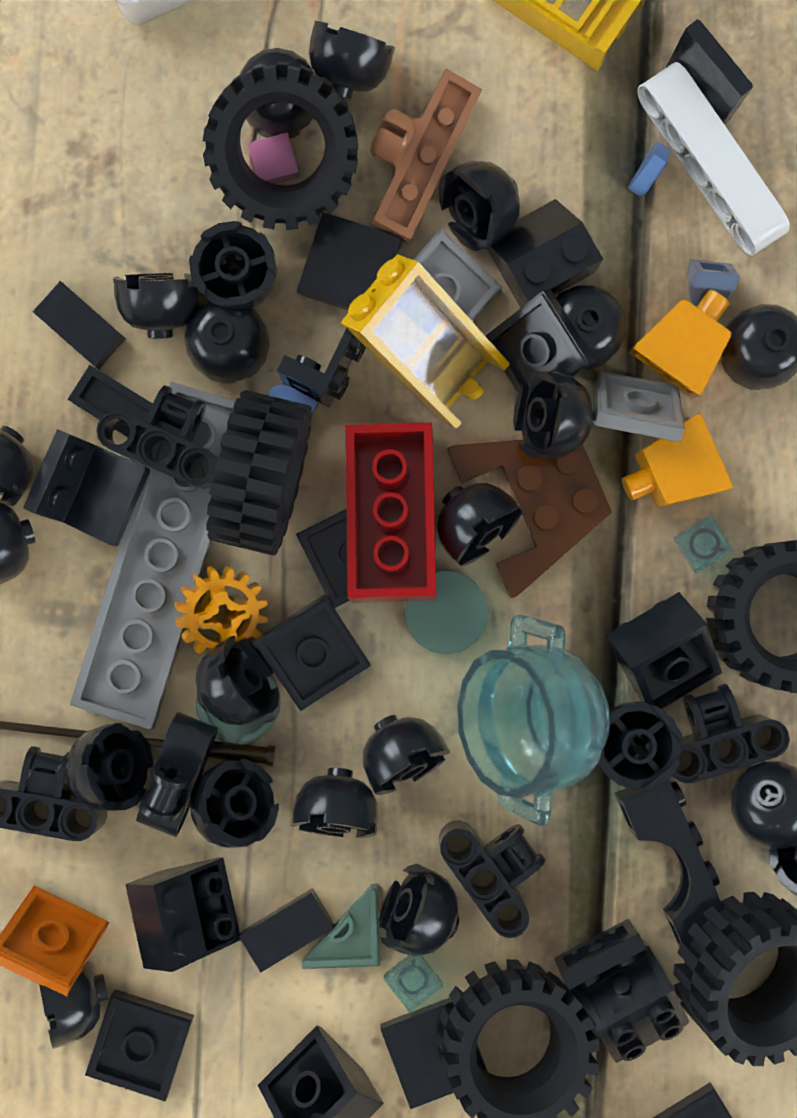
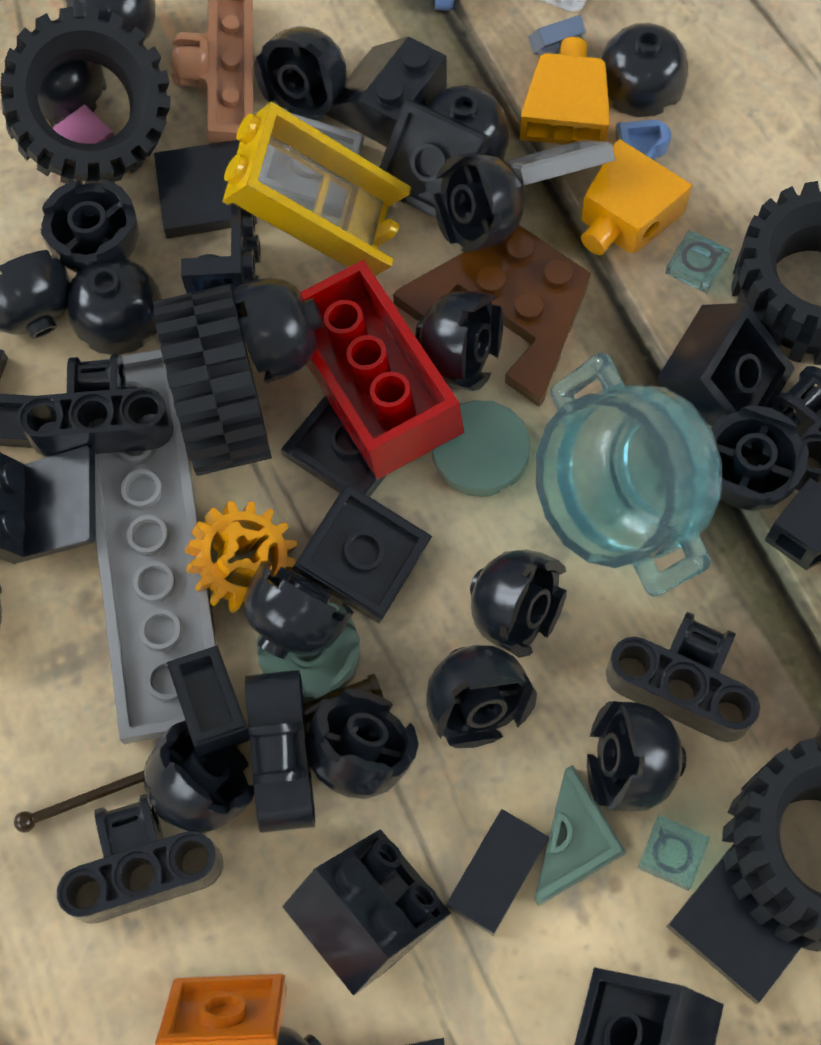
camera: 25 degrees left, 20 degrees down
(140, 718) = (208, 701): none -> black tile
(328, 460) = (277, 326): none -> black cylinder
(724, 411) = (646, 136): none -> medium blue tile

